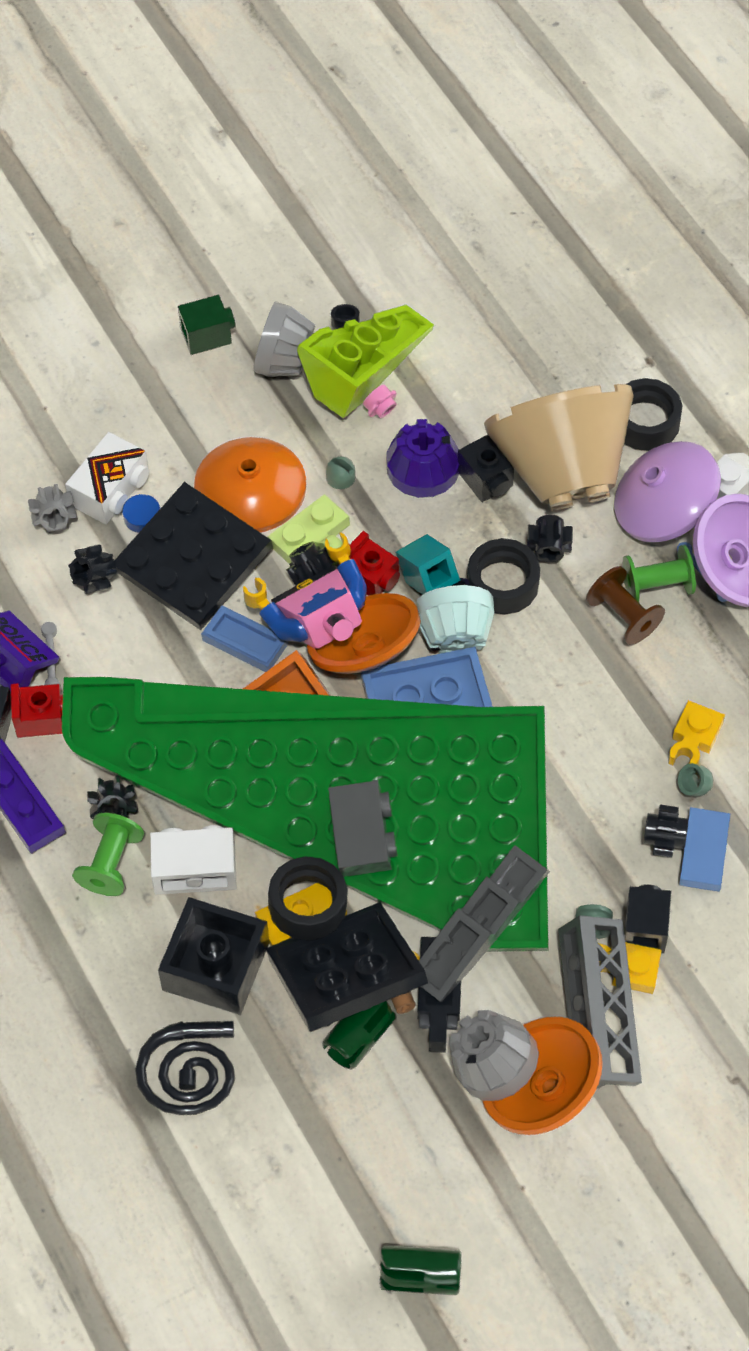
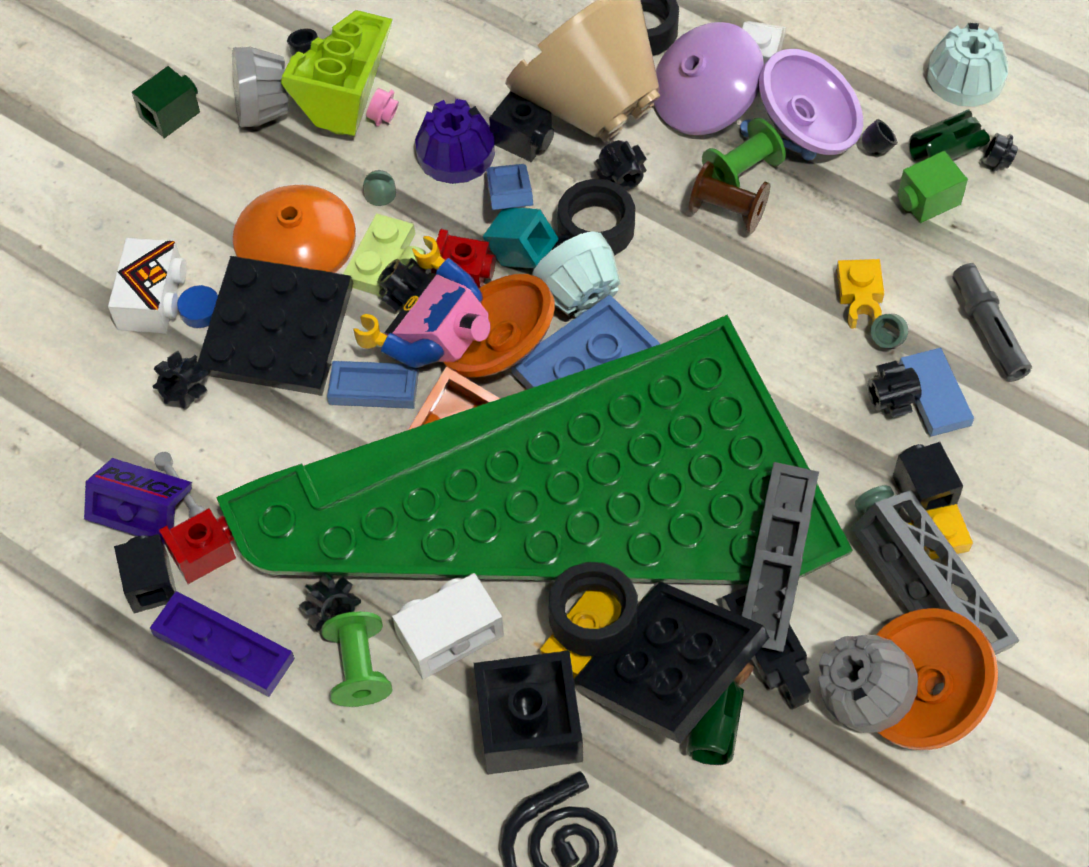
camera: 25 degrees left, 0 degrees up
(52, 508) = (104, 337): light grey gear -> none
(361, 828) = (612, 513): dark grey brick -> none
(443, 517) = (509, 186): none -> medium blue tile

